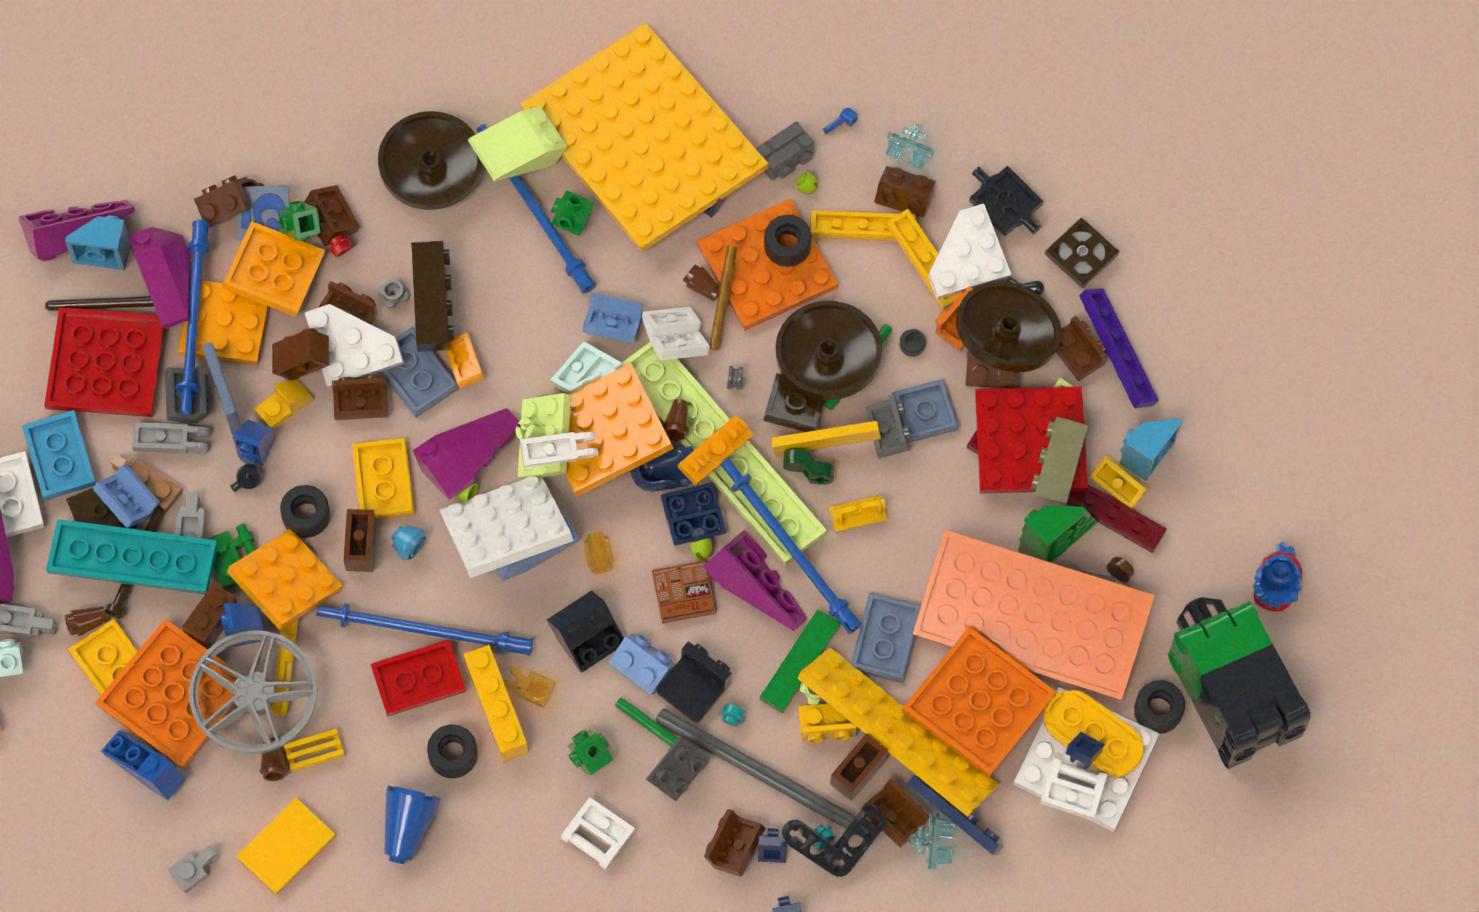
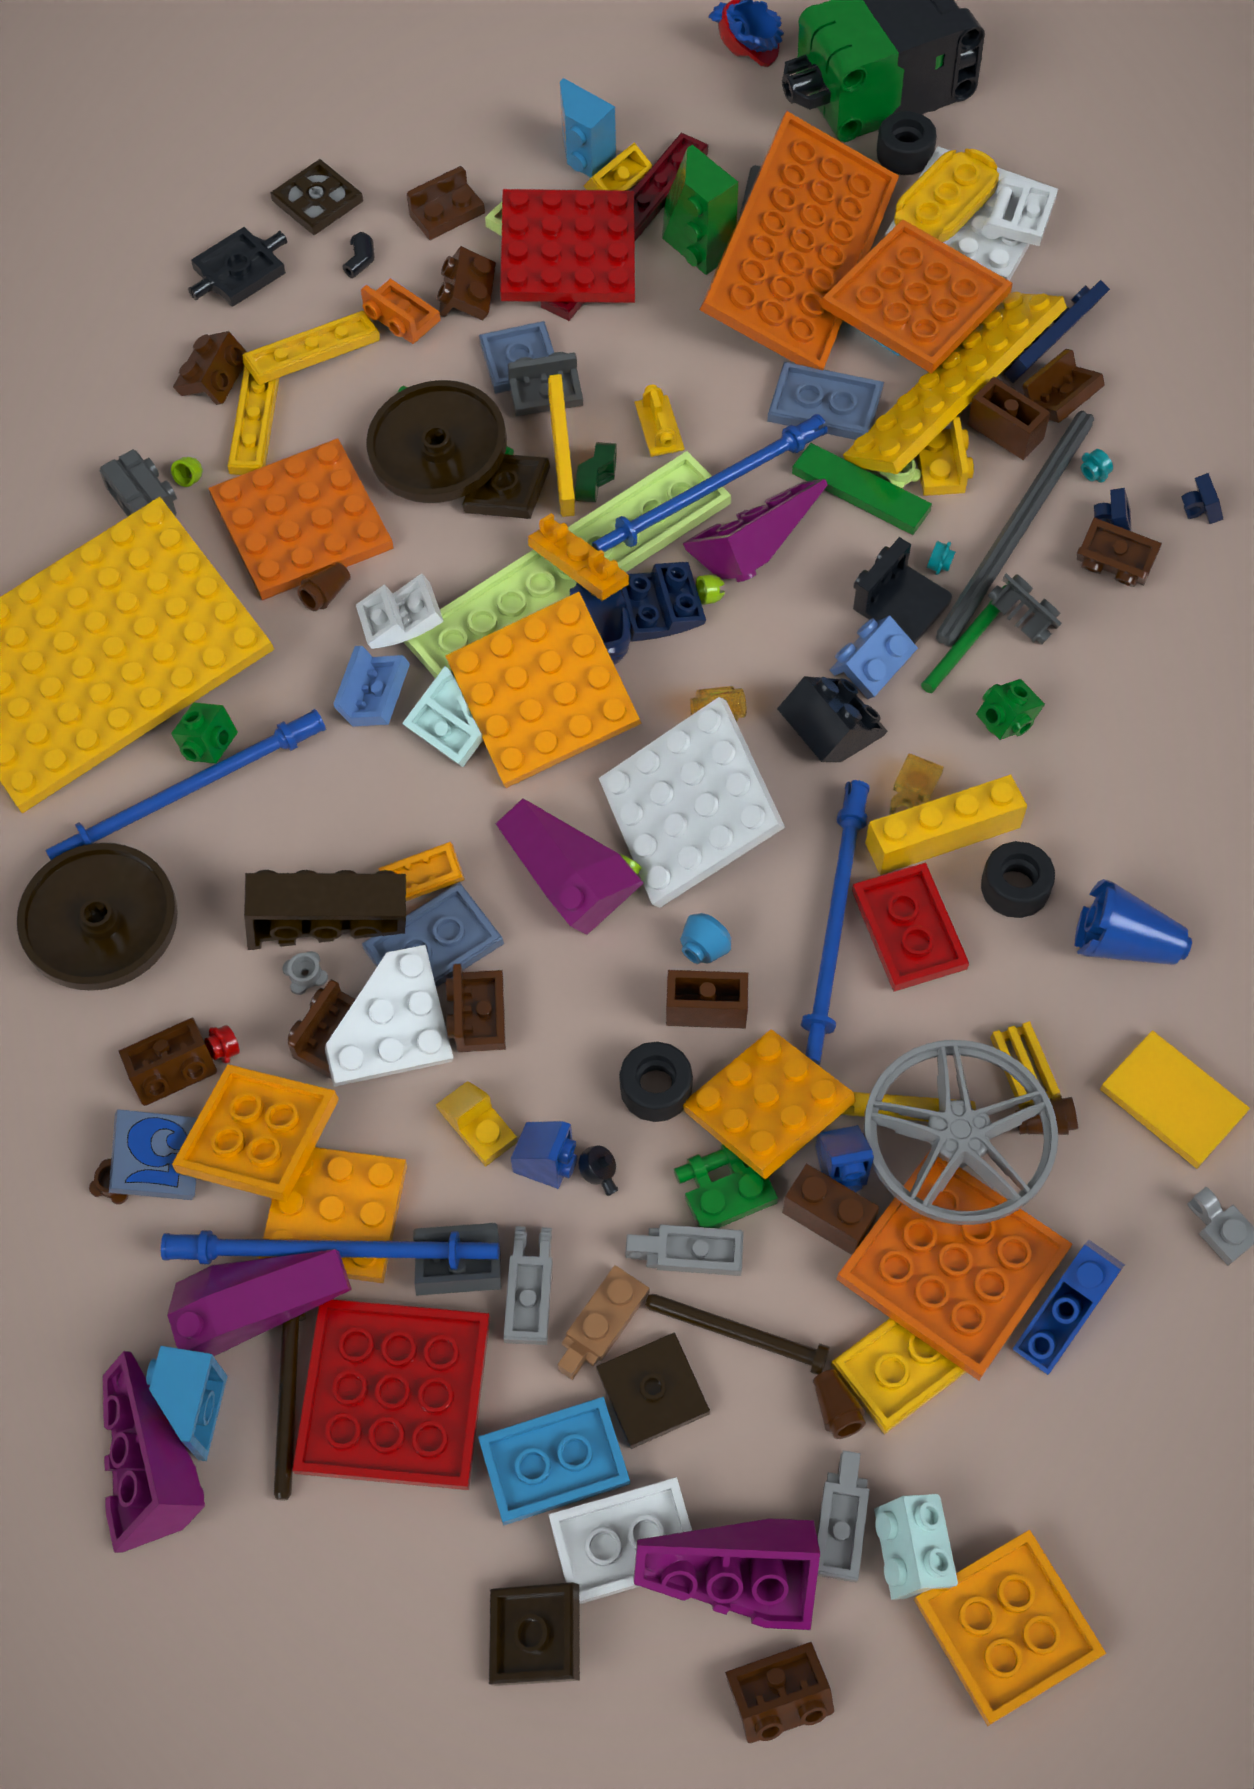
camera: 85 degrees left, 5 degrees down
(127, 496) = (636, 1338): medium blue bracket -> none
(132, 556) = (738, 1330): teal plate -> none
(221, 387) = (457, 1198): sand blue tile -> none
(223, 202) = (130, 1209): reddish brown bracket -> none
(299, 220) = (182, 1087): green brick -> none
(300, 354) = (405, 1084): reddish brown brick -> none
(383, 477) = (601, 982): yellow tile -> none
(519, 144) = (90, 792): yellowish green slope -> none
(542, 418) = (550, 761): yellowish green plate -> none
(556, 449) = (585, 727): white hinge -> none
(602, 825) = (1106, 700): white plate -> none
(677, 420) = (529, 600): reddish brown cone -> none
(683, 592) = (769, 613): dark orange tile -> none
(723, 296) = (347, 557): pearl gold bar -> none
(734, 377) = (466, 550): dark grey bush -> none
(787, 255) = (277, 459): black tyre -> none
(834, 851) = (1124, 444): black beam -> none
(847, 116) = (95, 427): blue hand -> none
(912, 342) = (424, 367): pearl dark grey tile -> none
(920, 152) = (145, 356): clear light blue hips -> none
(935, 853) = (1097, 344): clear light blue hips -> none
(968, 255) = (312, 296): white plate -> none
(1008, 327) = (421, 250): dark brown dish -> none
(1059, 460) = (607, 192): olive wedge -> none
(1084, 749) = (978, 190): dark blue tile -> none
(1118, 348) = (476, 157): dark purple plate -> none
(1120, 569) = (737, 168): reddish brown tile -> none

